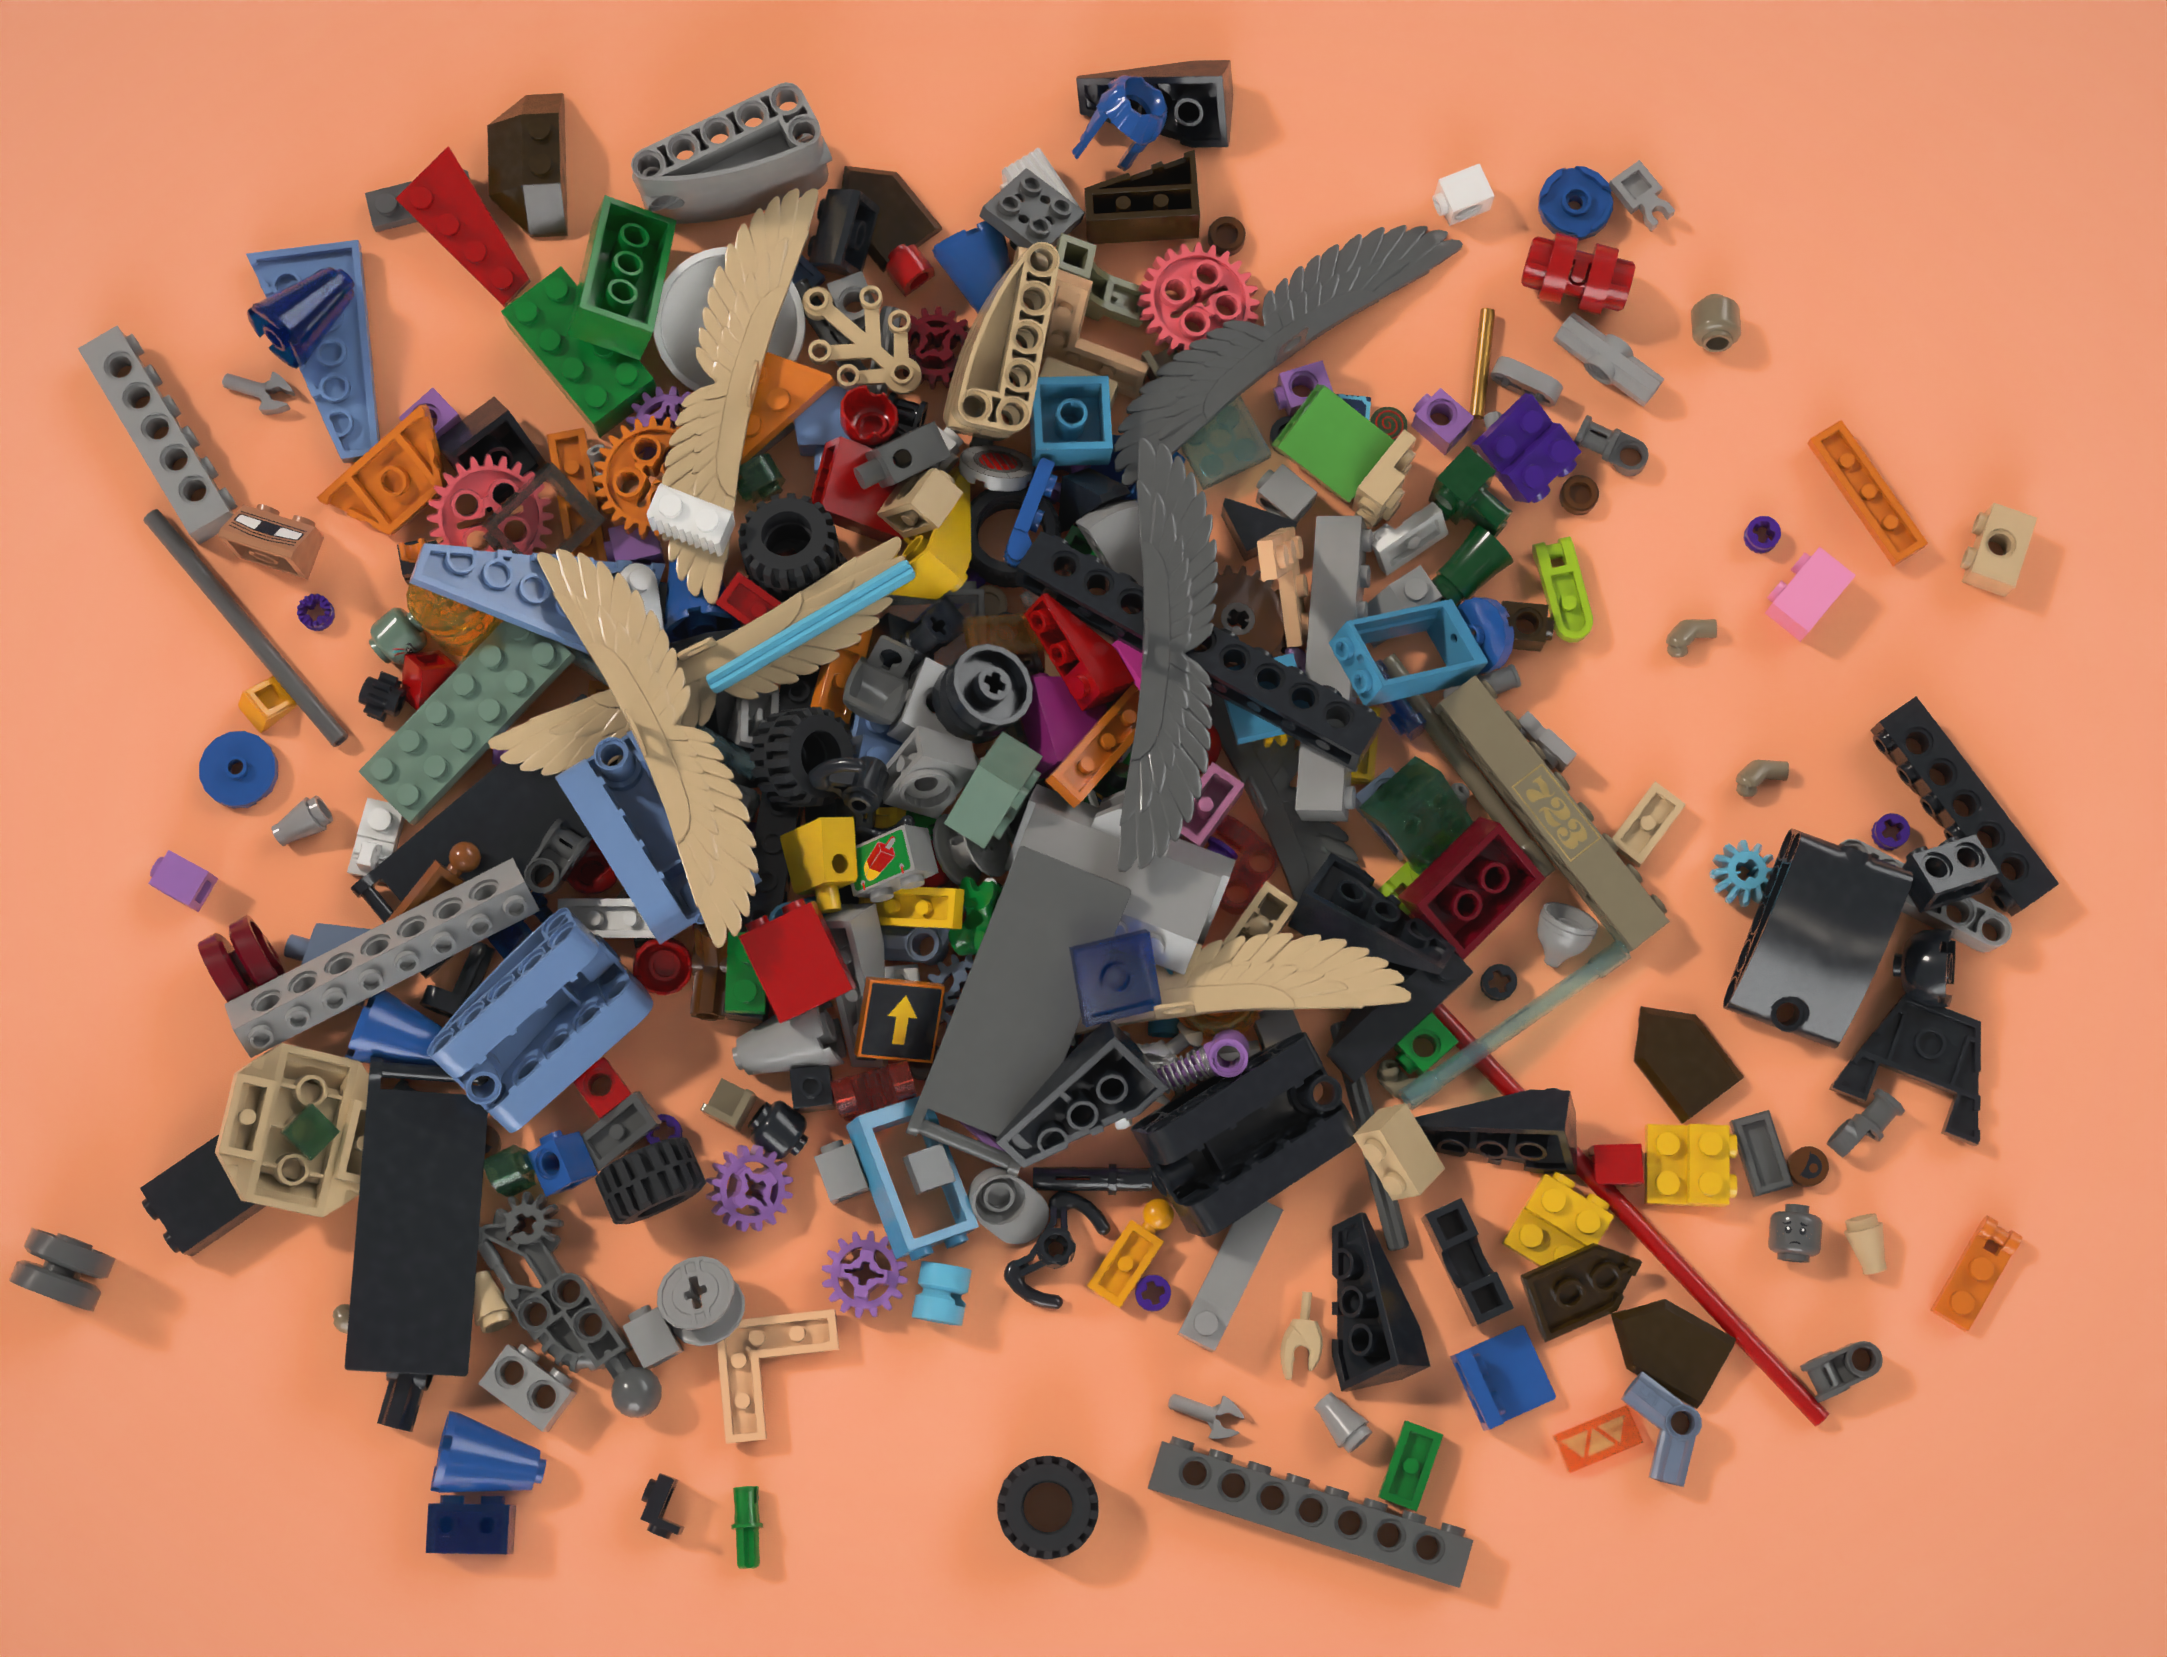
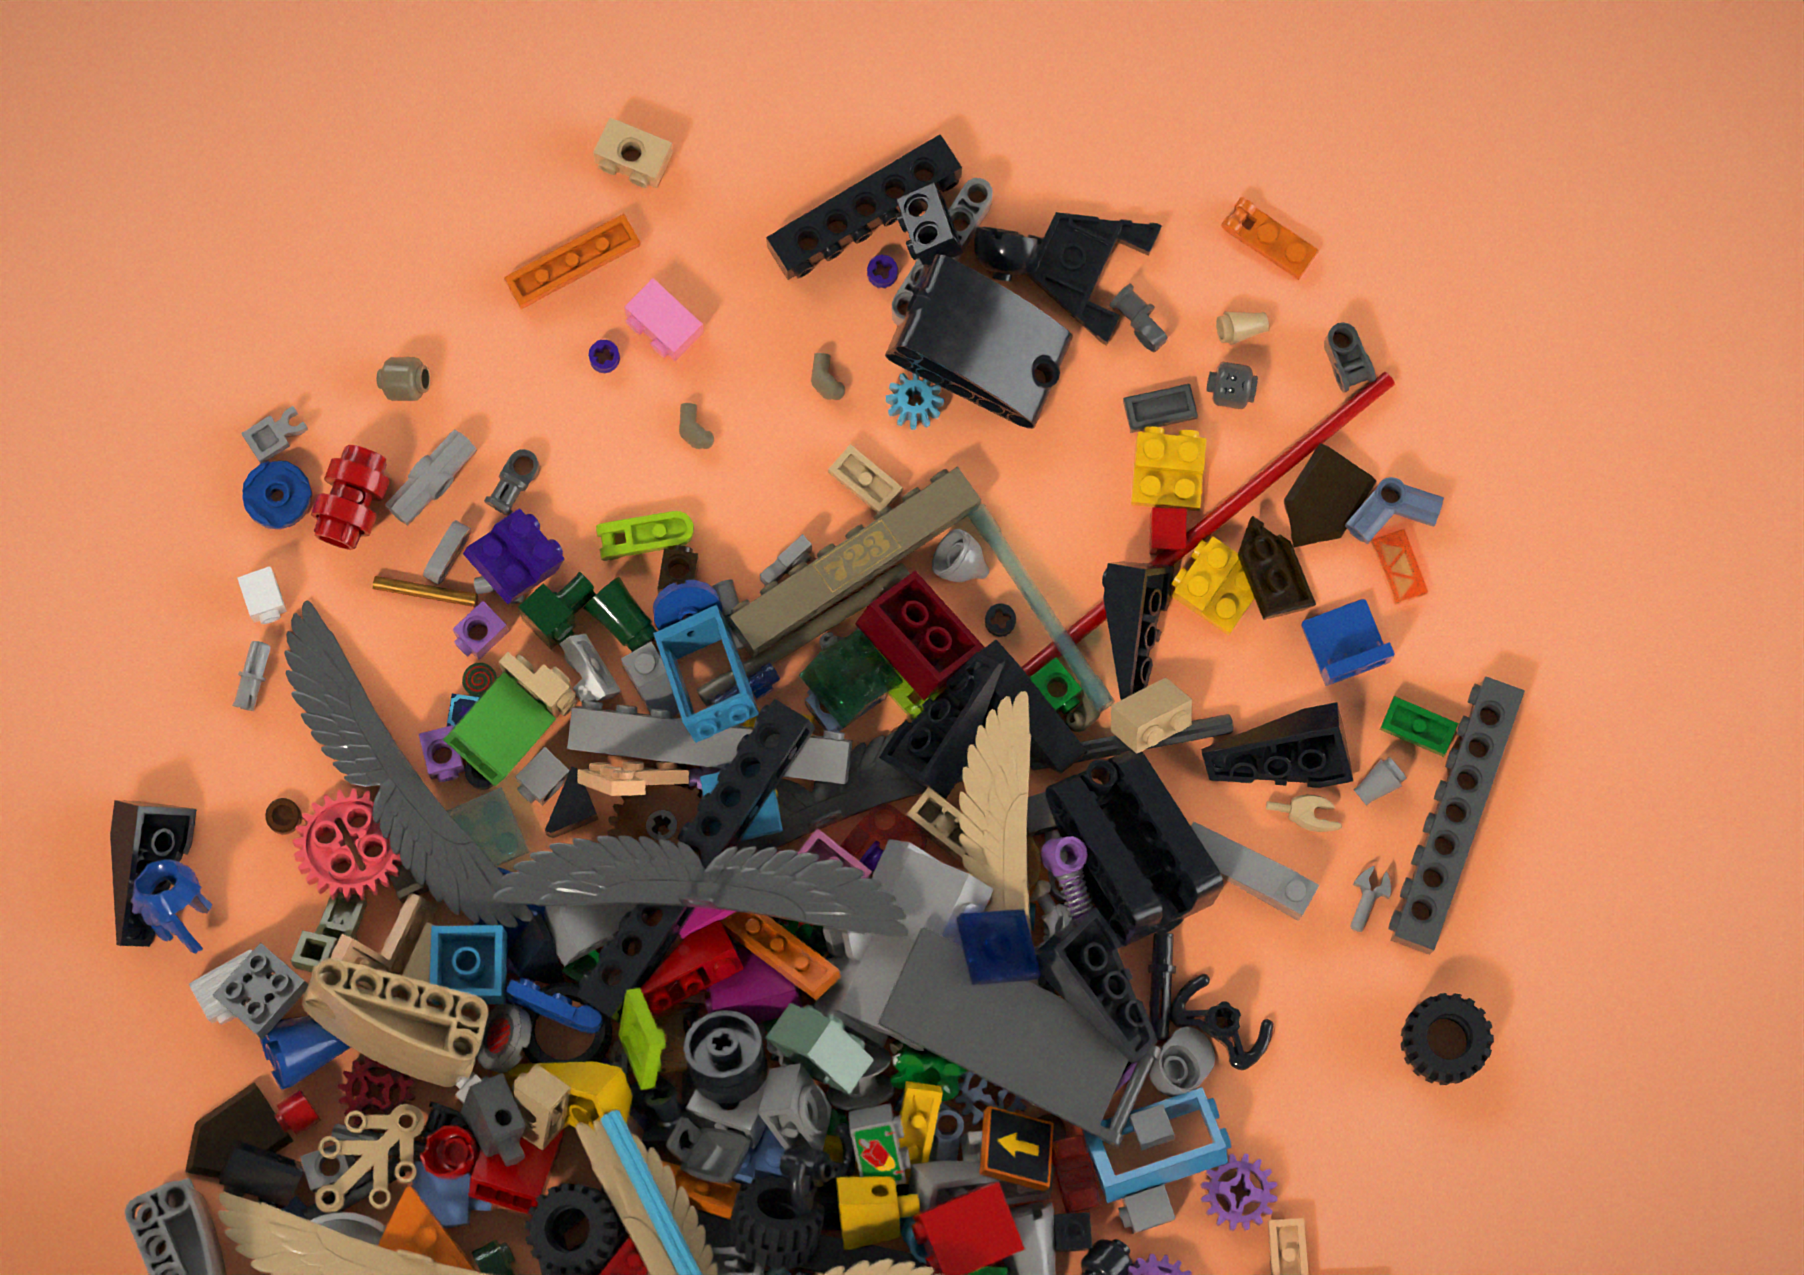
camera: 90 degrees left, 0 degrees up
(941, 1293) = (1258, 1123): medium azure wheel -> none
(993, 603) = (641, 1039): none -> lime plate
(1131, 1254) = (1228, 955): light orange plate -> none
(1146, 205) = (252, 886): dark brown wedge -> none
(1147, 1304) = (1257, 948): dark purple bush -> none
(1375, 192) = (252, 676): none -> light grey axle
(1465, 1264) = (1244, 668): black arch -> none
(1579, 495) = (556, 514): reddish brown tile -> none
(1682, 1061) = (1076, 467): dark brown tile -> none
(1808, 1166) = (1173, 369): reddish brown tile -> none

